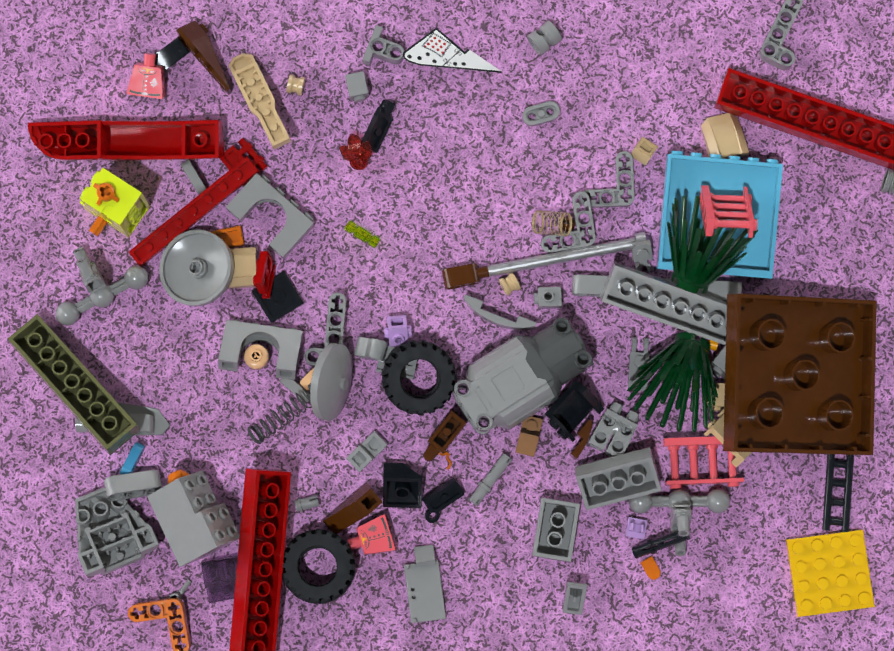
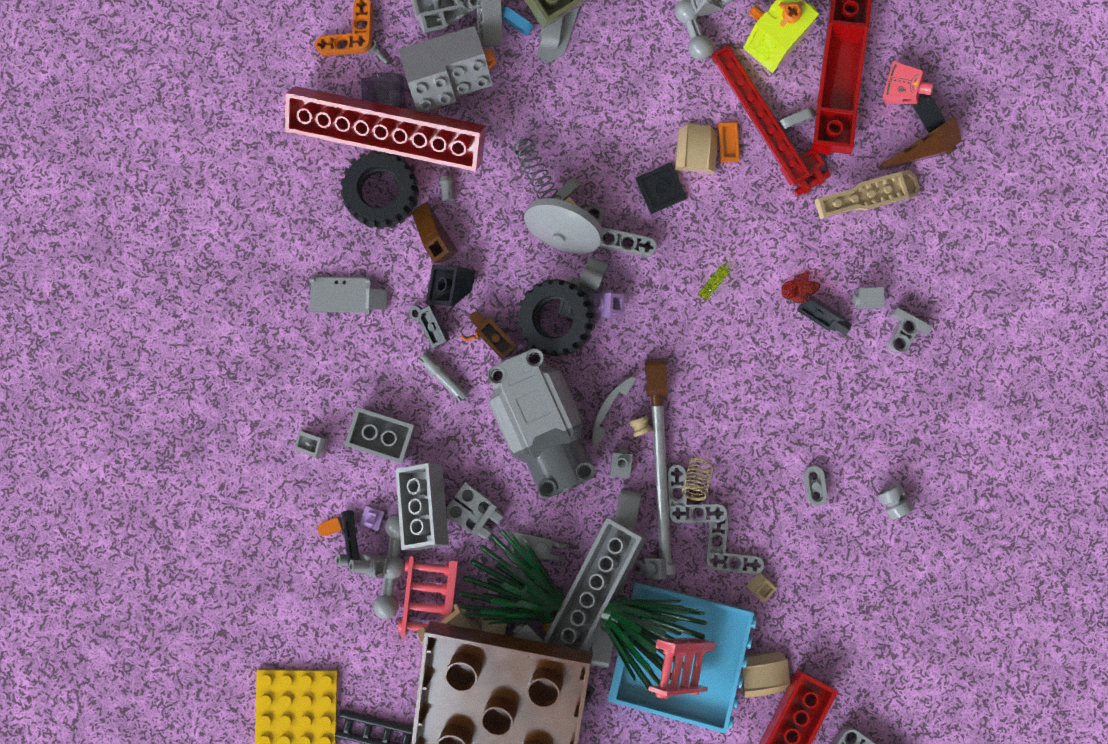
camera: 100 degrees right, 5 degrees up
(196, 268) = (701, 108): light grey dish -> none
(240, 334) = (626, 142): light grey arch -> none
(260, 191) = (772, 183): light grey arch -> none
(261, 362) = (597, 162): light nougat head -> none
(264, 275) = (685, 176): red plate -> none
(295, 85) = (879, 236): tan wheel -> none
(367, 451) = (490, 257): light grey slope -> none
(373, 537) = (401, 250): coral torso -> none
(440, 51) = (894, 391): sticker -> none
(529, 436) = (481, 423): medium nougat slope -> none
(572, 409) = (500, 469): black panel -> none
(584, 435) = (475, 479): reddish brown slope -> none

